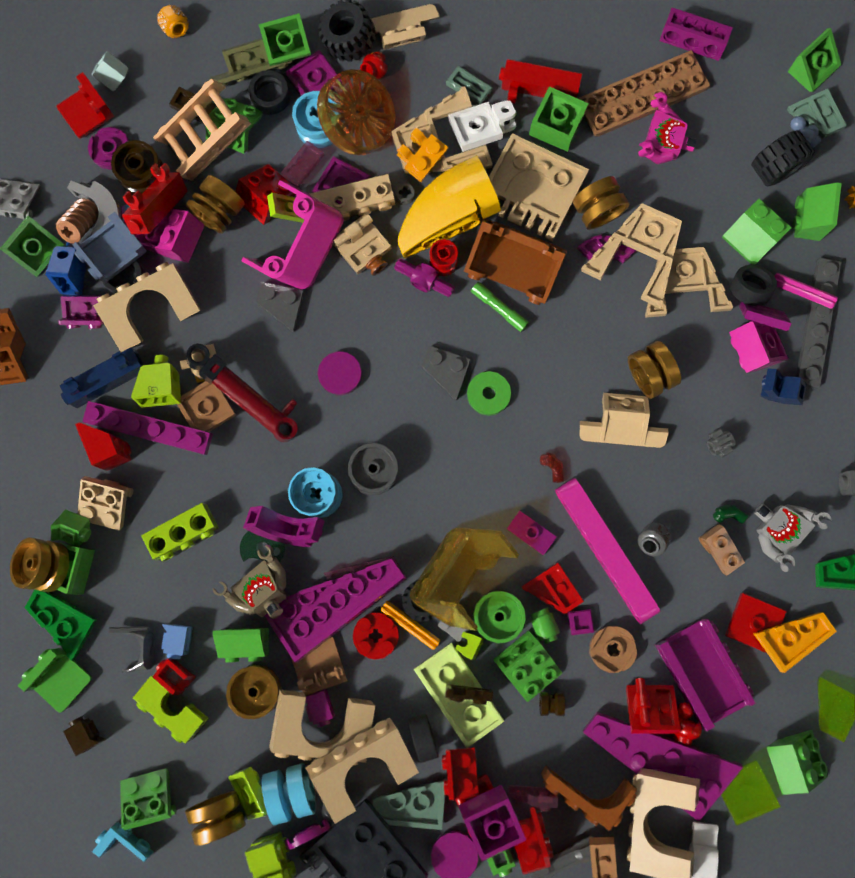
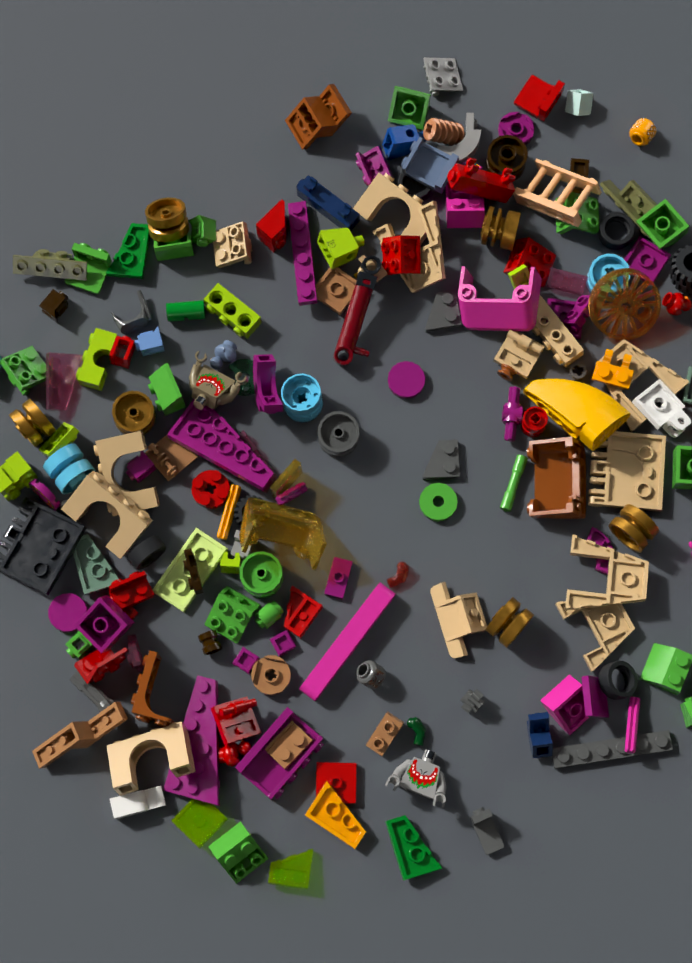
camera: 65 degrees right, 5 degrees down
(31, 723) = (50, 265): none -> olive bracket
(154, 589) = (180, 310): none -> green pin
(175, 762) = (60, 378): none -> clear pink wing
(198, 320) = (401, 254): none -> red bracket
(220, 302) = (430, 255): none -> tan wing
(224, 560) = (223, 352): none -> sand blue animal
(341, 164) = (575, 316): none -> magenta hinge
(402, 546) = (286, 479): none -> clear yellow tile
(419, 547) = (291, 493): none -> magenta axle
(584, 670) = (245, 660): none -> magenta tile
(699, 660) = (288, 745): none -> medium nougat plate

